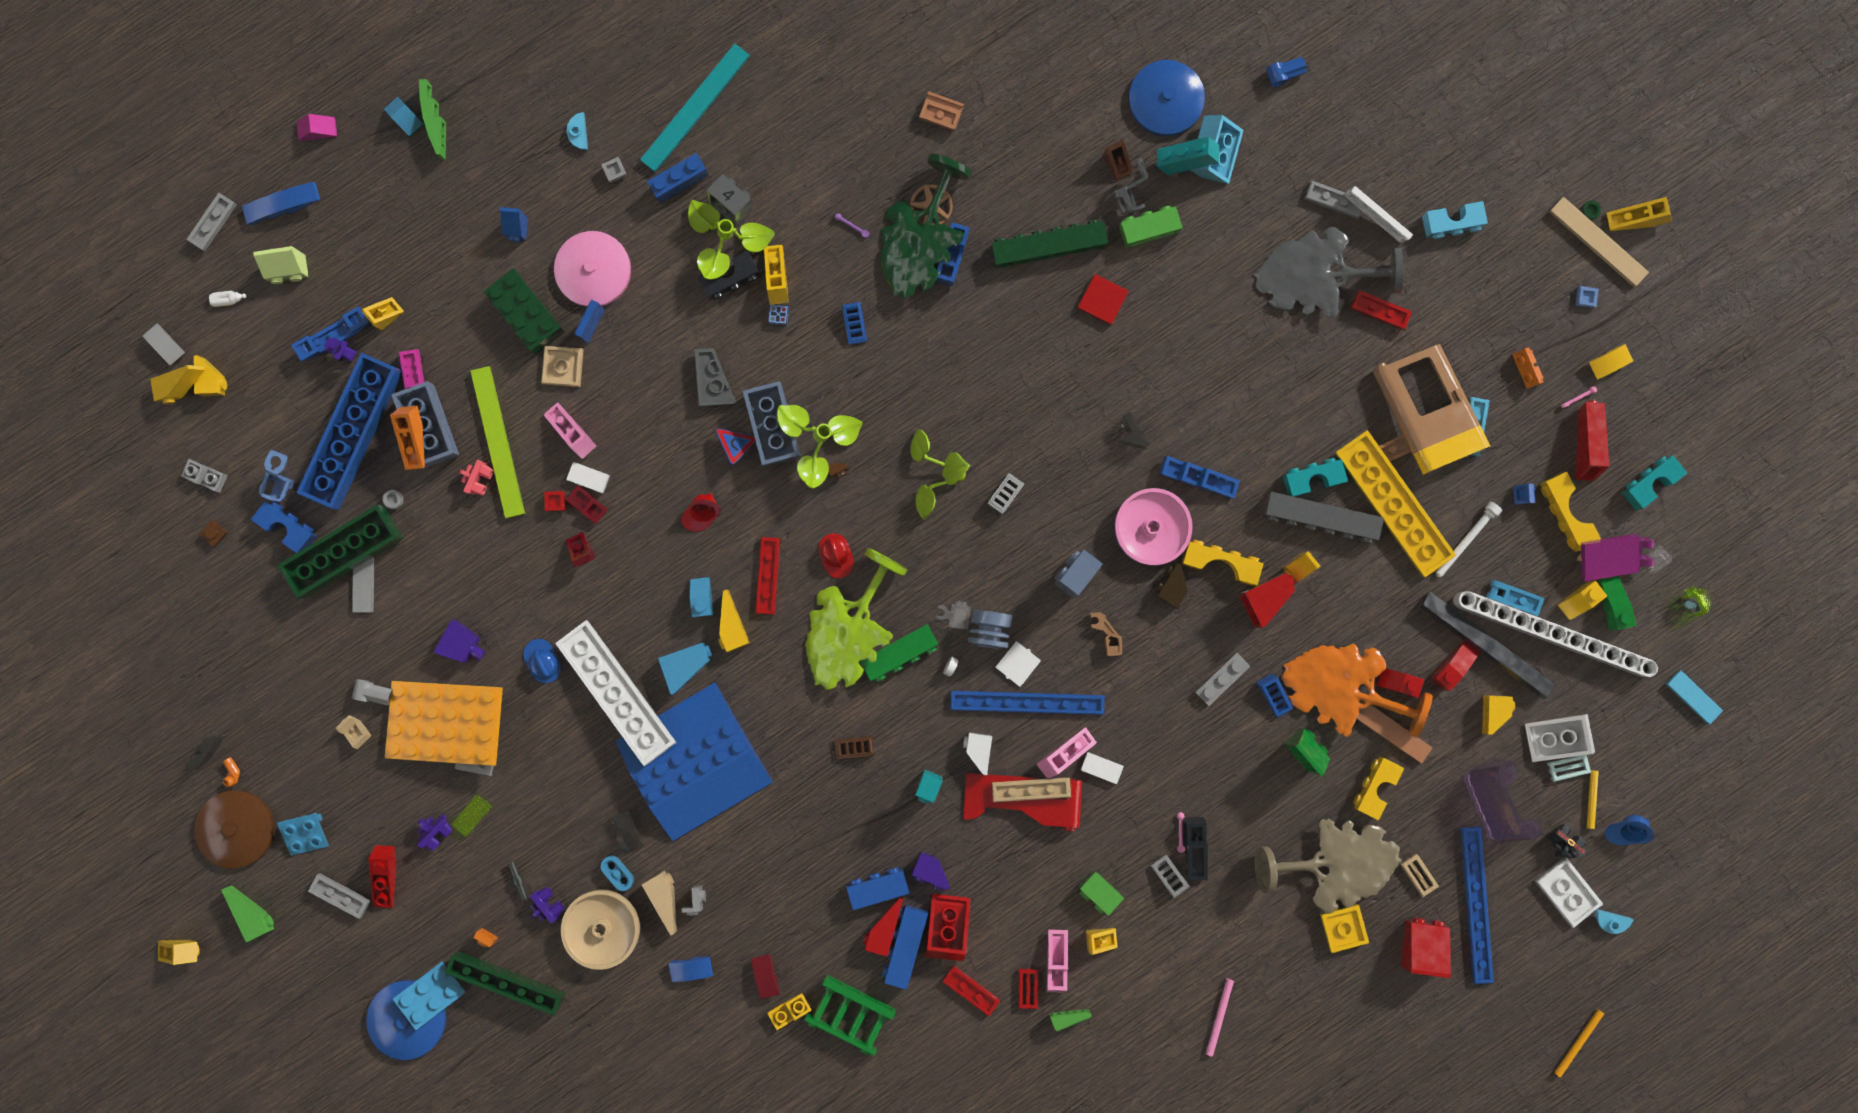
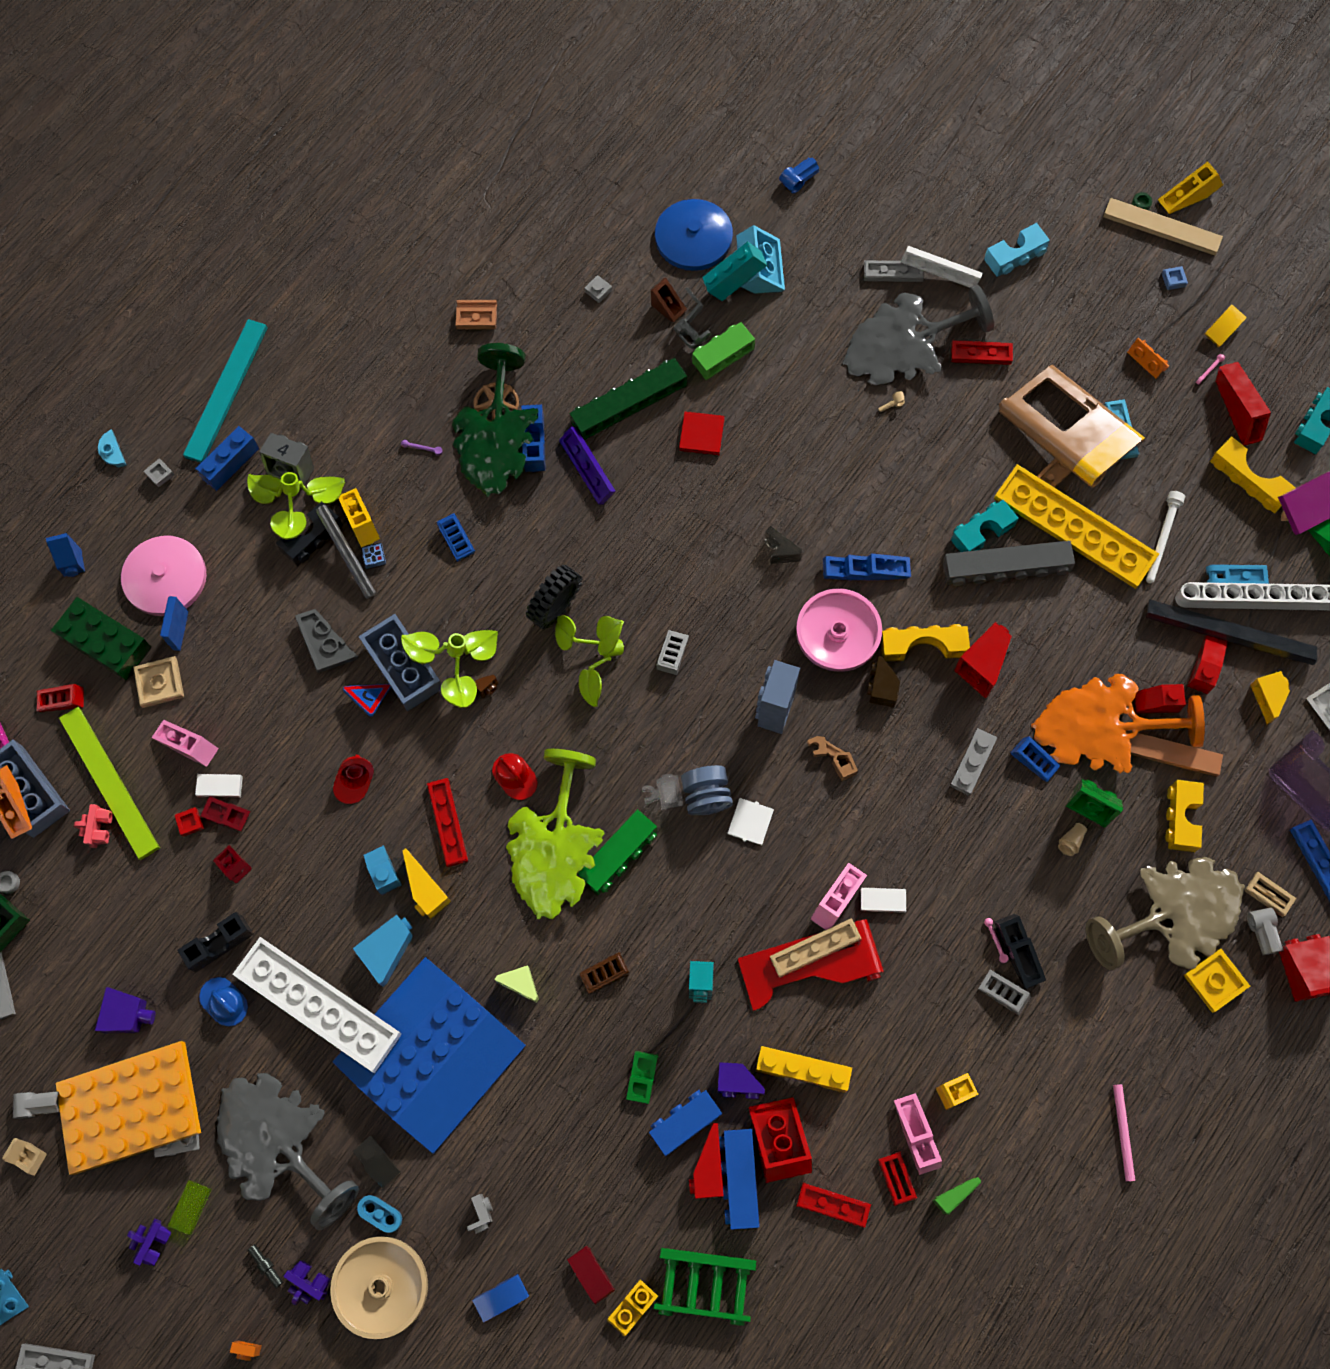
camera: 15 degrees left, 15 degrees down
(382, 875) = (102, 1318): red slope -> none
(487, 354) = (74, 698): none -> red slope
(544, 774) = (259, 1126): none -> dark grey plant
(549, 613) = (205, 950): none -> black arch
(662, 895) = (440, 1221): tan slope -> none
(755, 305) = (345, 551): none -> flat silver axle
(784, 731) = (519, 981): none -> yellowish green slope
(856, 840) = (642, 1077): none -> green slope
(920, 414) = (553, 596): none -> black tyre
(950, 666) = (679, 848): white tile -> none
(978, 749) = (742, 926): white slope -> none
(986, 881) = (804, 1068): none -> yellow arch
(991, 296) = (587, 465): none -> dark purple plate
(1027, 702) = (775, 858): blue tile -> none
(1060, 123) = (598, 289): none -> light grey plate
(1101, 893) = (936, 1037): bright green brick -> none
(1276, 775) = (1072, 840): none -> tan cone
(1288, 329) = (898, 401): none -> tan hand
(1301, 566) = (1009, 612): yellow slope -> none
(1402, 899) = (1264, 925): none -> light grey piece
(1524, 494) = (1199, 473): blue tile -> none
(1582, 599) = (1305, 554): yellow slope -> none

